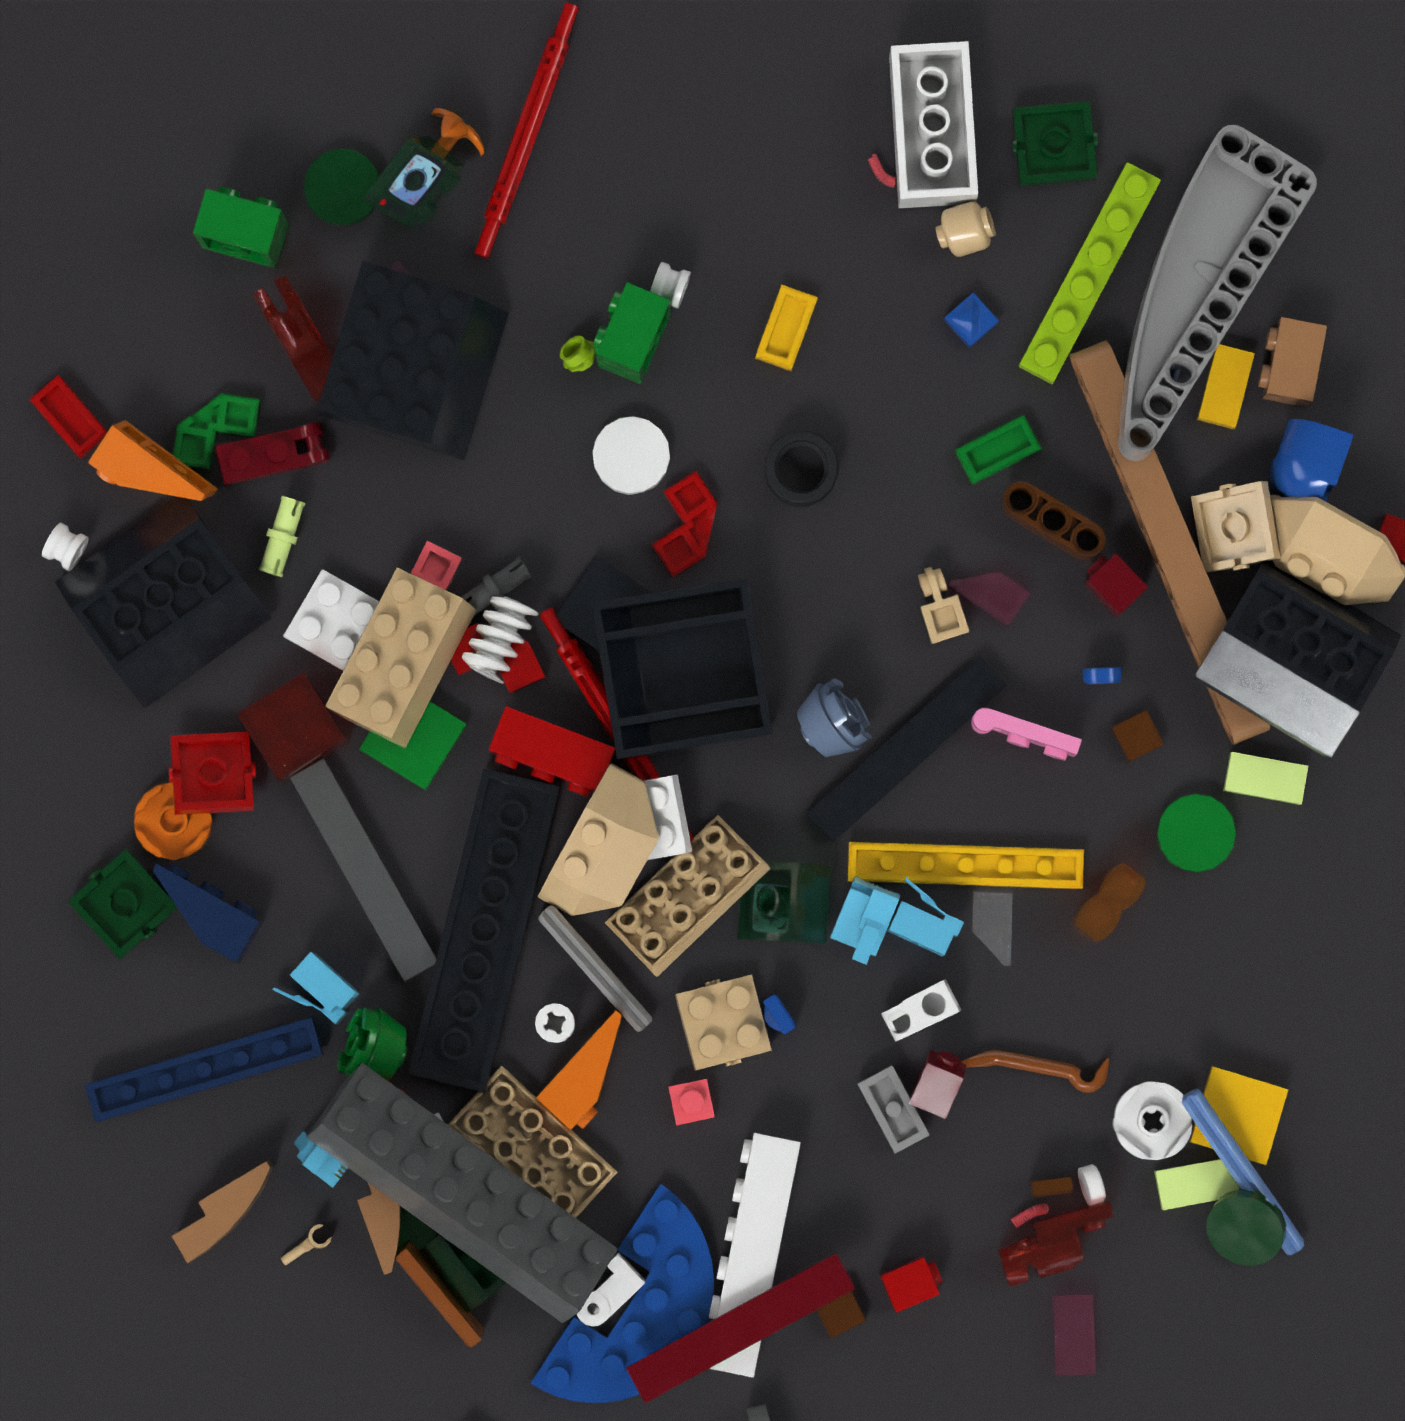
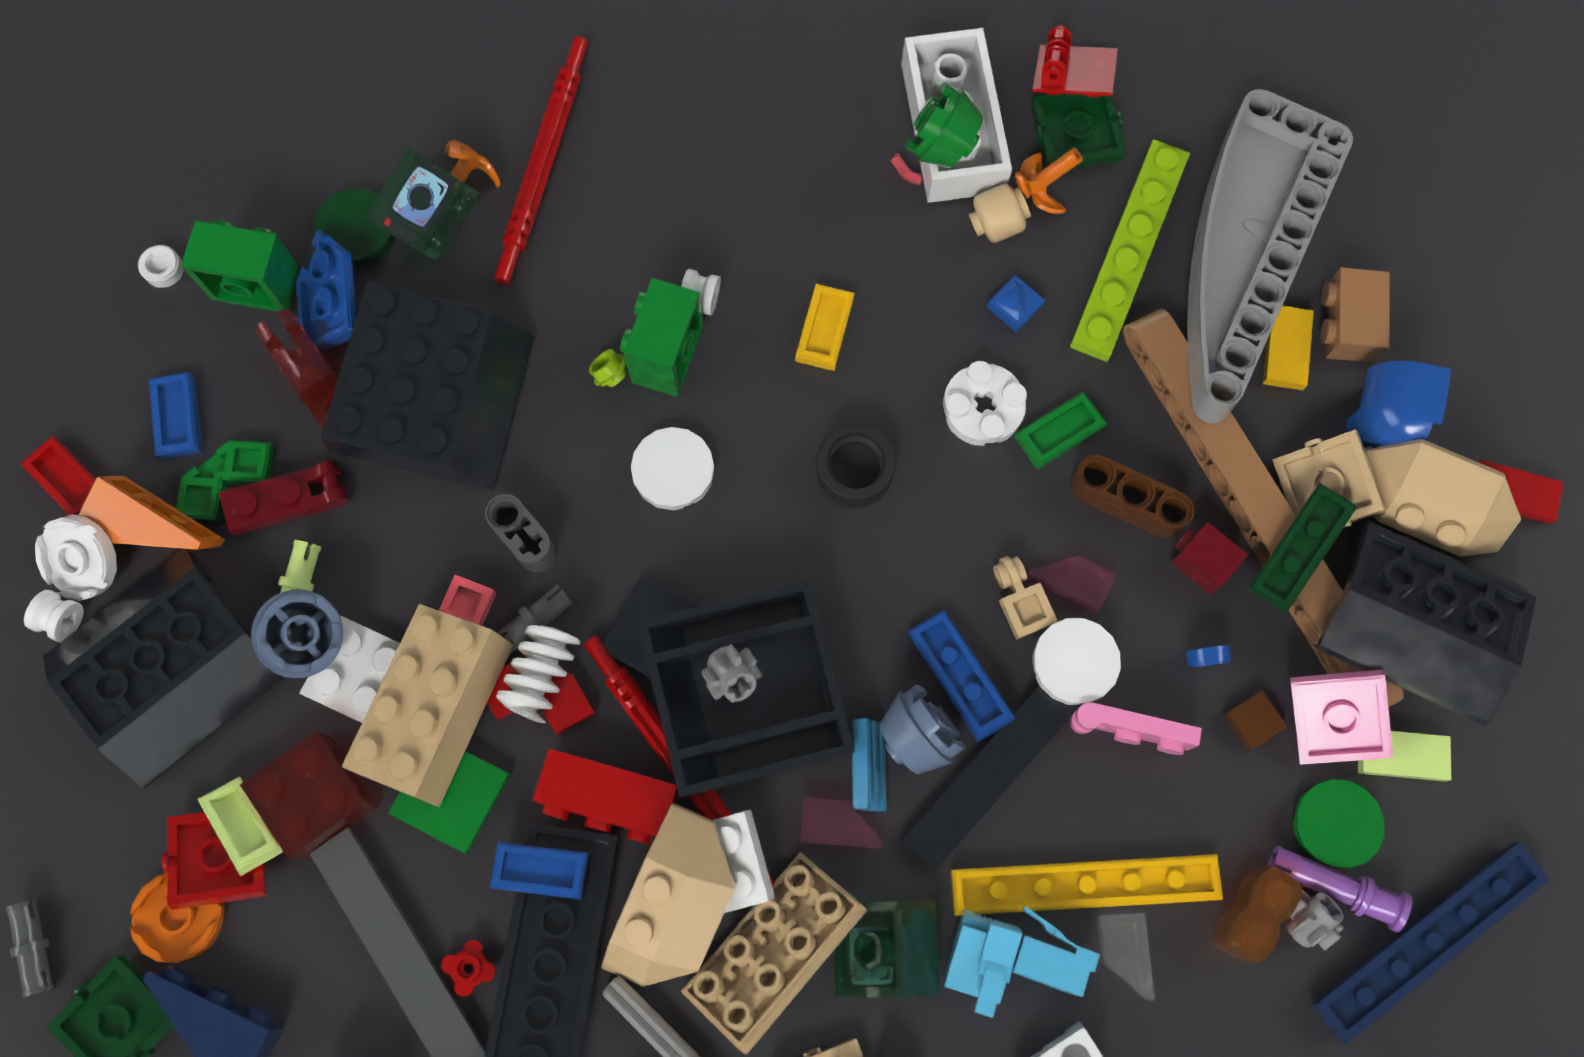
camera: 10 degrees left, 10 degrees down
(49, 835) = (29, 948): none -> dark grey pin
(86, 495) = (76, 557): none -> white tile
(155, 211) = (160, 266): none -> white tile
(170, 363) = (175, 416): none -> blue tile
(234, 748) = (239, 826): none -> yellowish green tile
(290, 586) = (297, 633): none -> sand blue cone
(317, 258) = (327, 294): none -> blue tile
(435, 888) = (456, 964): none -> red plate
(491, 810) = (539, 870): none -> blue tile
(502, 507) = (523, 525): none -> dark grey beam
(670, 657) = (731, 673): none -> light grey gear
(690, 541) = (743, 552): red tile -> none
(751, 793) = (835, 824): none -> clear pink tile
(785, 746) = (868, 766): none -> dark azure tile
(876, 672) = (961, 676): none -> blue tile
(915, 157) = (946, 128): none -> green cone
(932, 440) = (980, 381): none -> white plate
(980, 669) = (1076, 661): none -> white tile
(1008, 196) = (1034, 179): none -> orange plant
(1058, 81) = (1072, 68): none -> hinge
(1157, 912) = (1315, 921): none -> light grey gear
(1196, 586) = (1302, 548): none -> dark green tile
(1202, 895) = (1359, 894): none -> medium lavender pin
(1208, 740) = (1341, 717): none -> bright pink tile
(1257, 939) = (1429, 942): none -> dark blue plate

